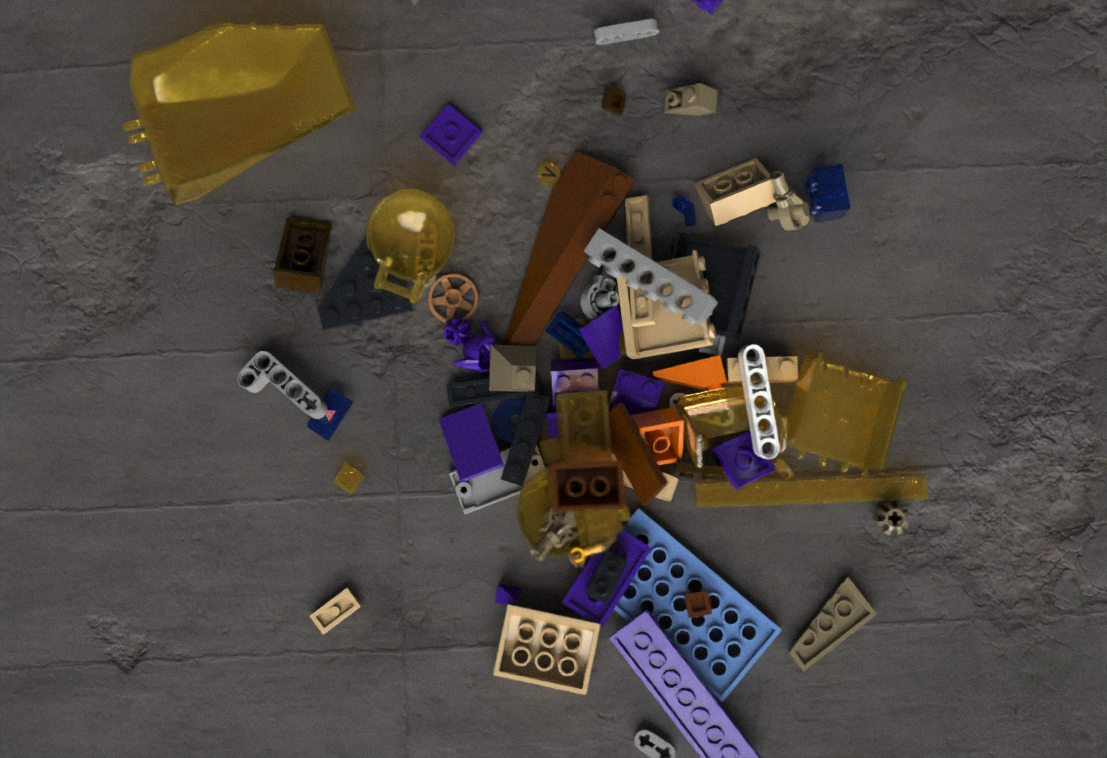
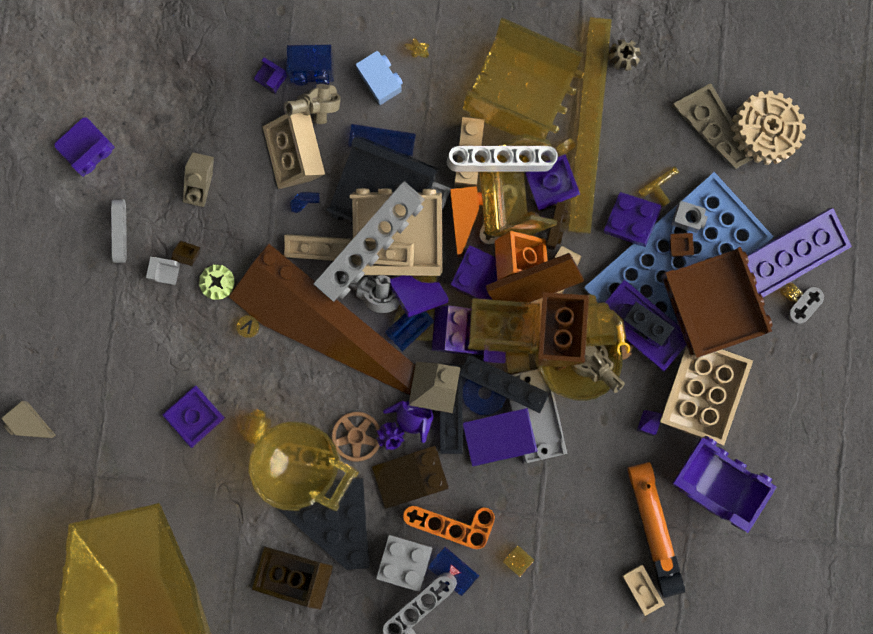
camera: 85 degrees left, 0 degrees up
(332, 363) = (404, 562): none -> light grey brick
(378, 401) = (446, 523): none -> orange beam
(398, 616) = (657, 534): none -> orange piece
(419, 359) = (410, 477): none -> dark brown slope
(450, 194) = (254, 425): none -> clear yellow head
(452, 680) = (723, 485): none -> dark purple cylinder
(589, 146) = (216, 292): none -> yellowish green gear
(592, 81) = (163, 270): none -> light grey panel
(640, 648) = (717, 303): none -> reddish brown panel
(666, 729) = (791, 292): none -> clear yellow bush
(717, 549) = (632, 219): none -> dark purple plate
(724, 598) = (680, 221): none -> light grey brick
(757, 569) = (654, 186): none -> clear yellow piece
(762, 291) = (396, 140): none -> clear blue tile
(809, 156) = (270, 75): none -> dark purple panel
(826, 265) = (379, 78): none -> light blue brick
(838, 682) = (768, 127): none -> tan piece
(862, 302) = (418, 49): none -> clear yellow plant

